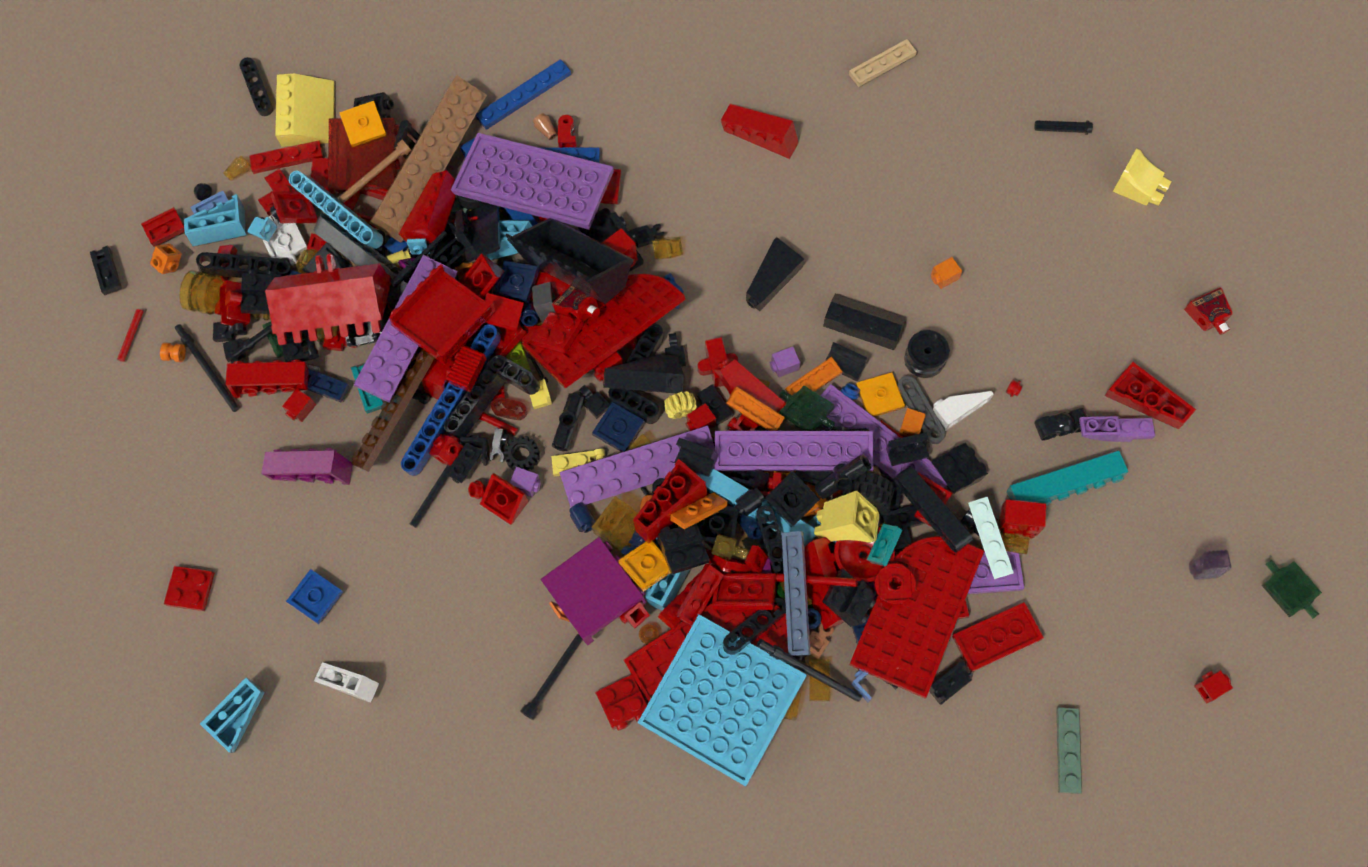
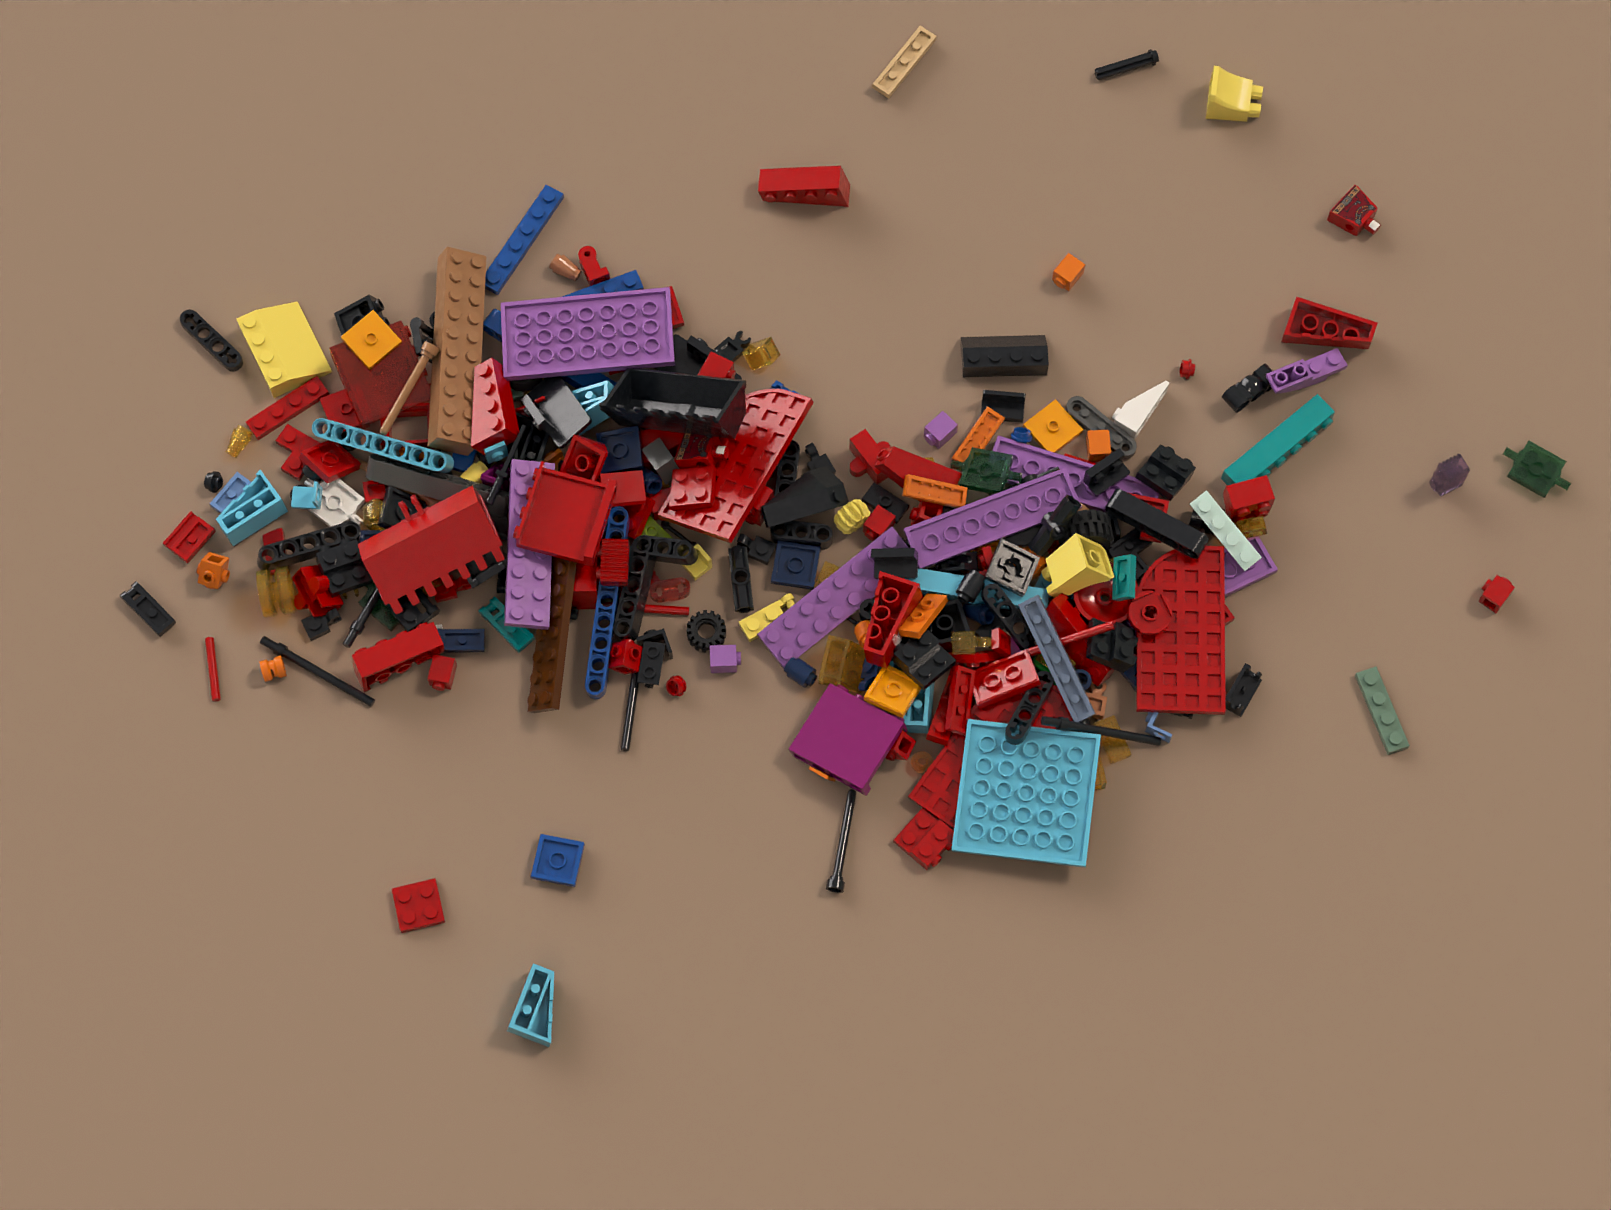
camera: 25 degrees left, 0 degrees up
(229, 347) = (335, 643): black plate -> none
(307, 466) = (483, 730): magenta wedge -> none
(346, 682) = (634, 930): white slope -> none
(499, 440) = (677, 624): plate -> none
(503, 499) = (709, 684): red slope -> none
(773, 274) = (888, 337): black slope -> none
(926, 353) = (1083, 366): black wheel -> none
(997, 637) = (1270, 627): red plate -> none

